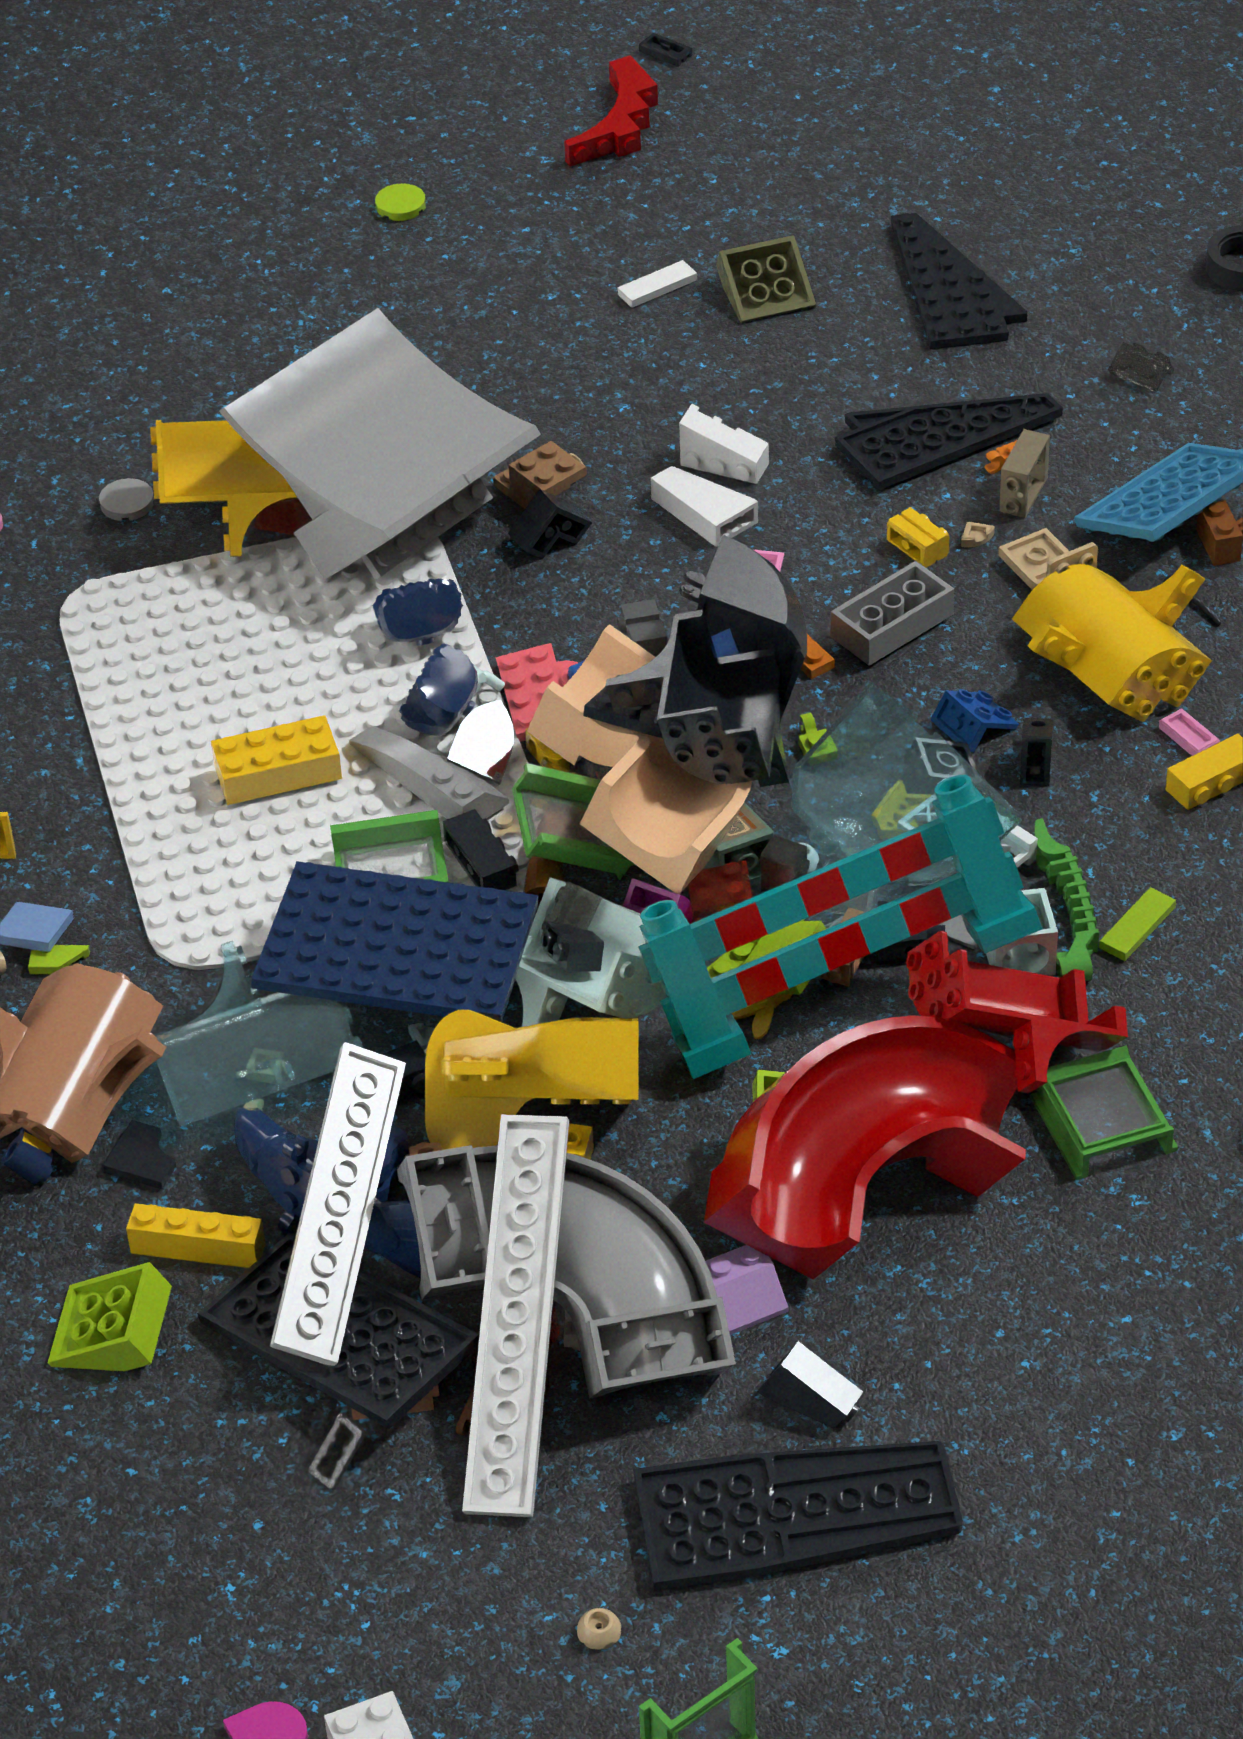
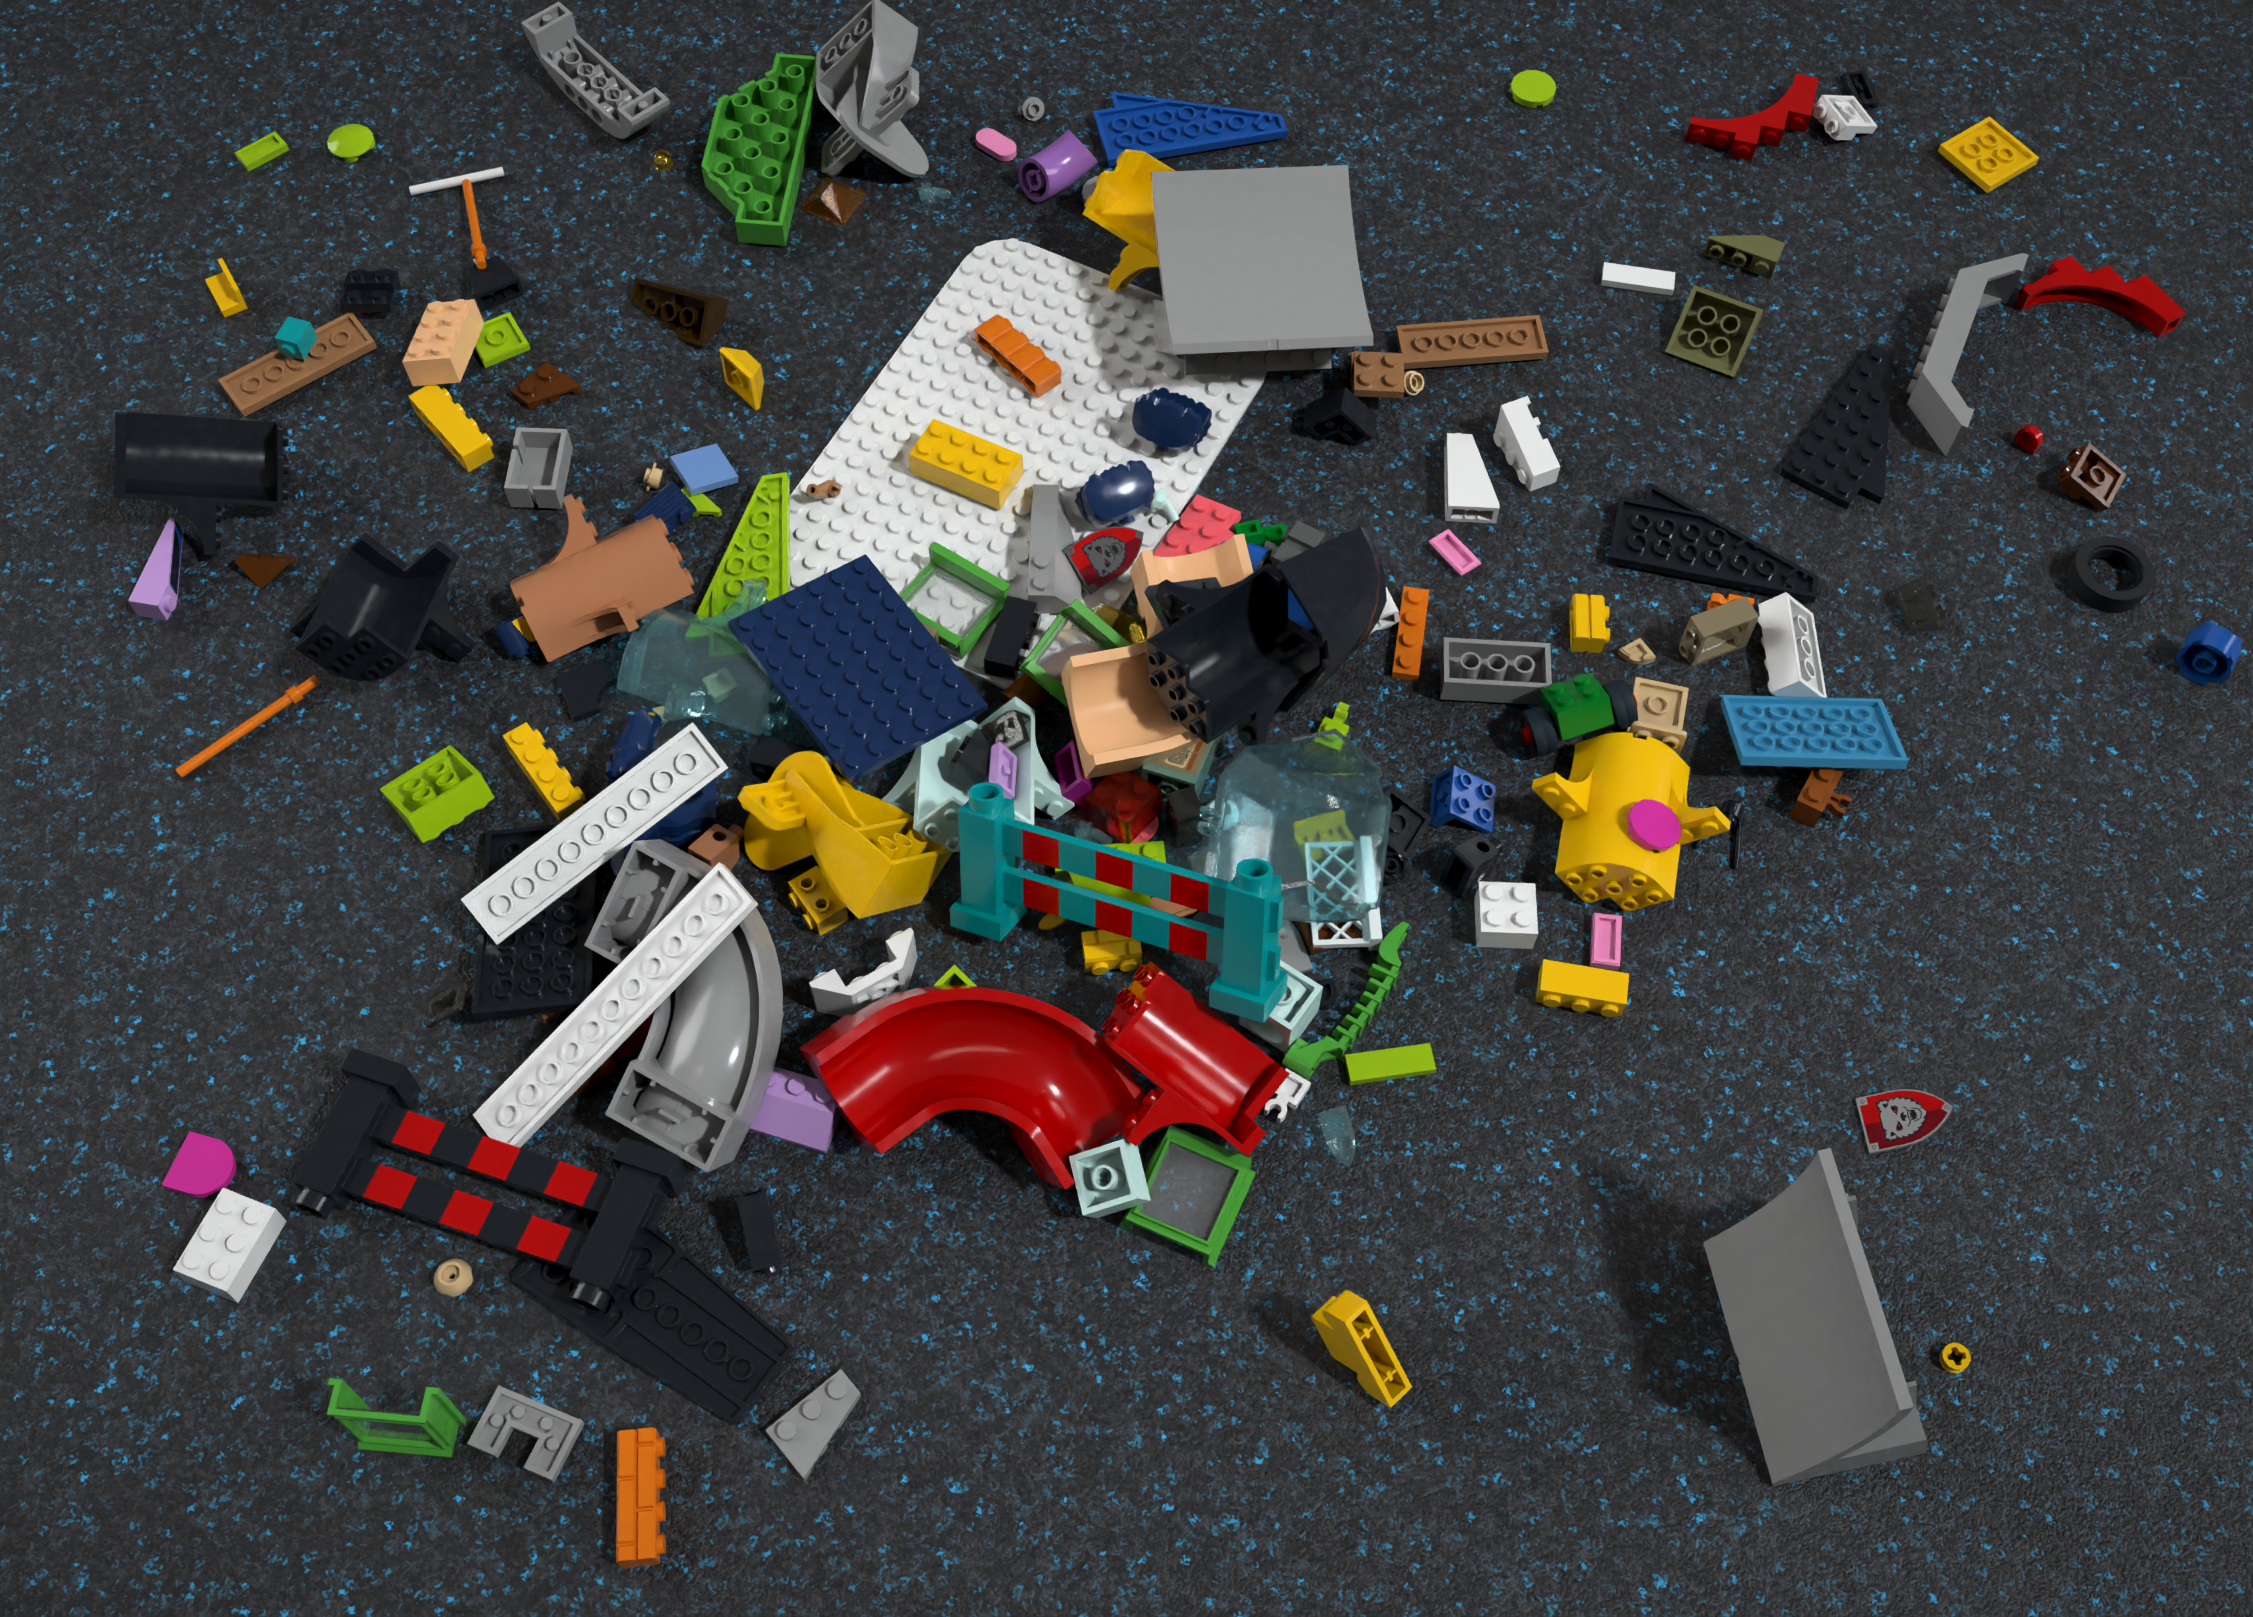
camera: 40 degrees right, 15 degrees up
(39, 963) = (670, 506): none -> dark blue brick
(64, 499) = (1055, 167): none -> medium lavender brick
(114, 421) = (1179, 127): none -> blue wing
(171, 861) = (824, 489): none -> medium nougat arm
(172, 948) = (757, 548): none -> lime wing
(219, 656) = (1017, 355): none -> orange brick
(579, 649) = (1259, 535): none -> green slope
(589, 403) = (1472, 342): none -> medium nougat plate
(613, 938) = (1003, 769): none -> lavender panel
(679, 74) = (1843, 117): none -> white plate
(679, 1182) = (889, 978): none -> white slope
(680, 1440) = (370, 1113): none -> black fence
(722, 211) = (1749, 252): none -> olive slope
(820, 35) = (1988, 154): none -> yellow plate
(823, 1651) = (551, 1427): none -> light grey plate
(837, 1004) = (1109, 951): none -> yellow brick
(952, 1632) = (639, 1498): none -> orange brick
(959, 186) = (1932, 393): none -> light grey slope
(989, 591) = (1576, 709): none -> brick
(1014, 74) = (2105, 288): none -> red arch
(1018, 1482) = (811, 1424): none -> light grey wing
(1047, 1131) = (1109, 1178): none -> light aqua brick
(1083, 206) = (2029, 438): none -> red tile
(1086, 454) = (1791, 648): none -> white slope
(1096, 995) = (1288, 1094): none -> white plate
(1101, 765) = (1506, 915): none -> white brick
(1149, 613) = (1653, 825): none -> dark pink tile
(1156, 202) = (2090, 476): none -> reddish brown plate
(1157, 990) = (1338, 1133): none -> clear light blue plate

